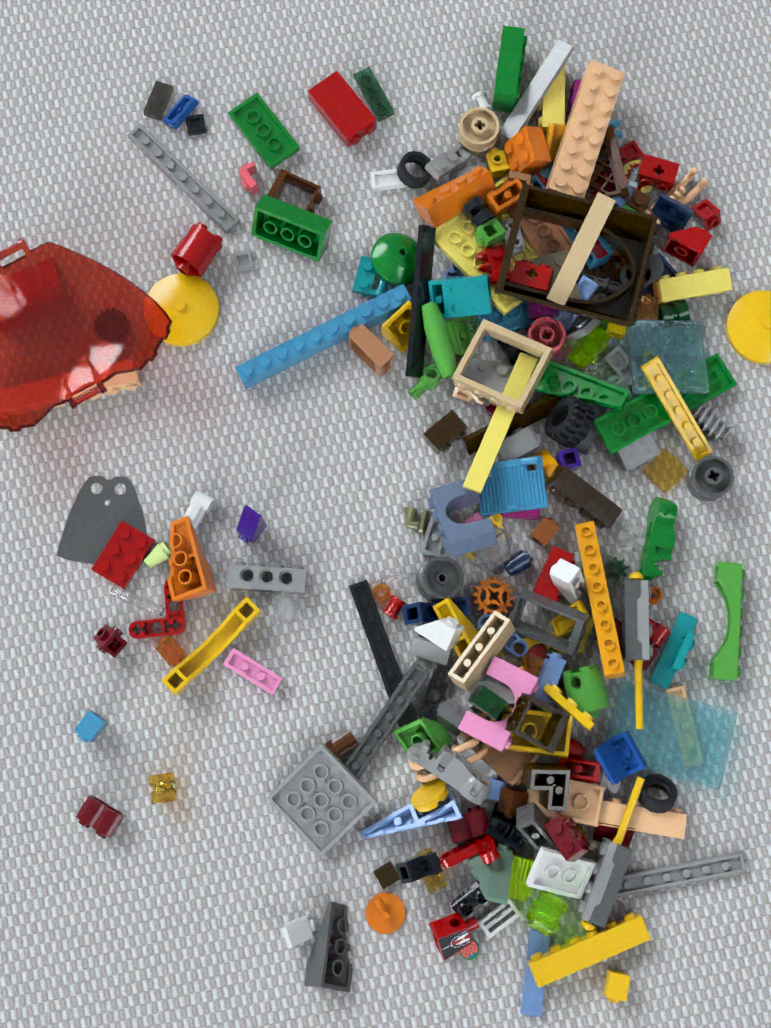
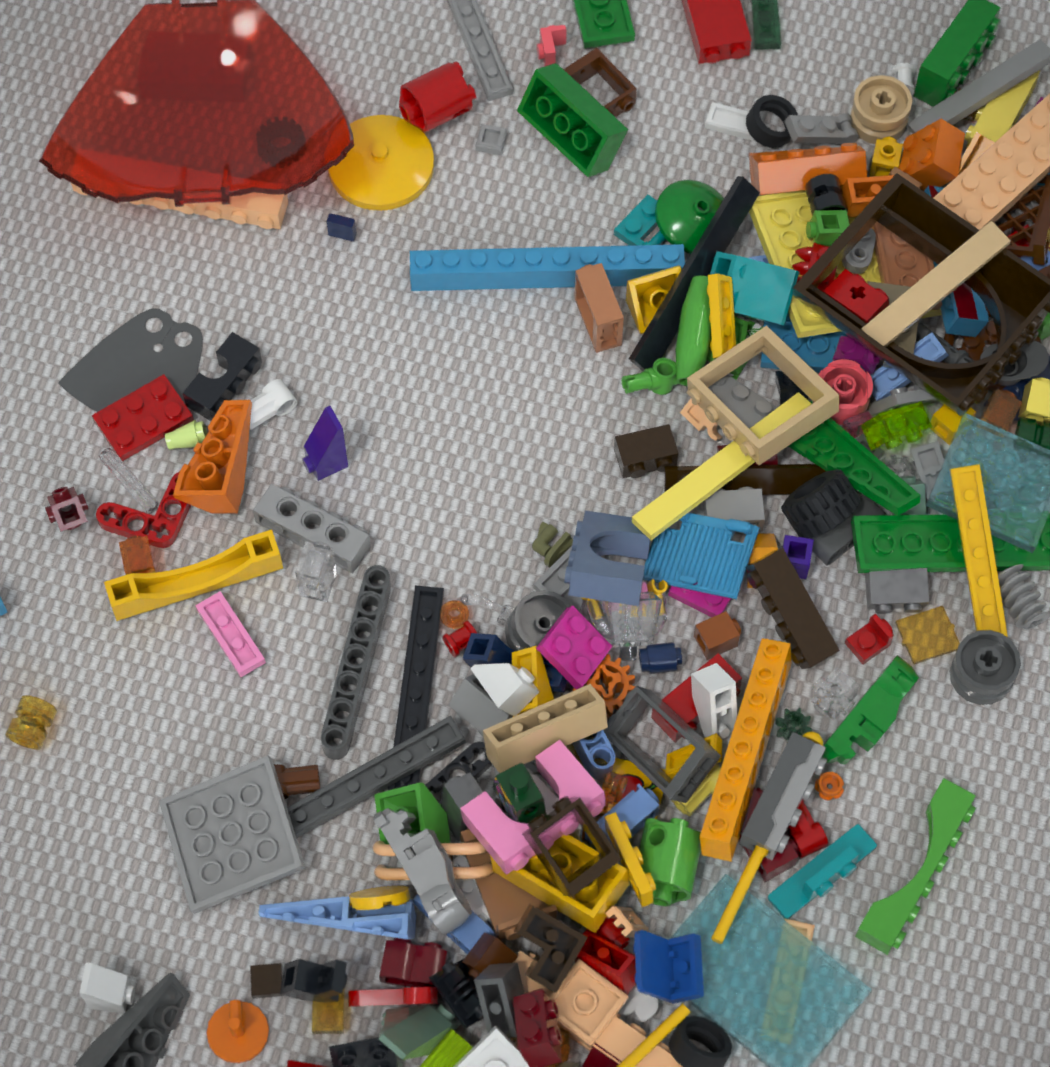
camera: 25 degrees right, 15 degrees down
(160, 521) = (240, 360): none -> black arch
(181, 367) = (341, 227): none -> dark blue tile
(332, 645) = (356, 674): none -> dark grey beam
(452, 324) = (721, 314): none -> yellow plate
(468, 585) = (574, 647): none -> dark pink plate
(573, 739) = (631, 924): none -> light nougat tile
(634, 490) = (870, 639): none -> red bracket

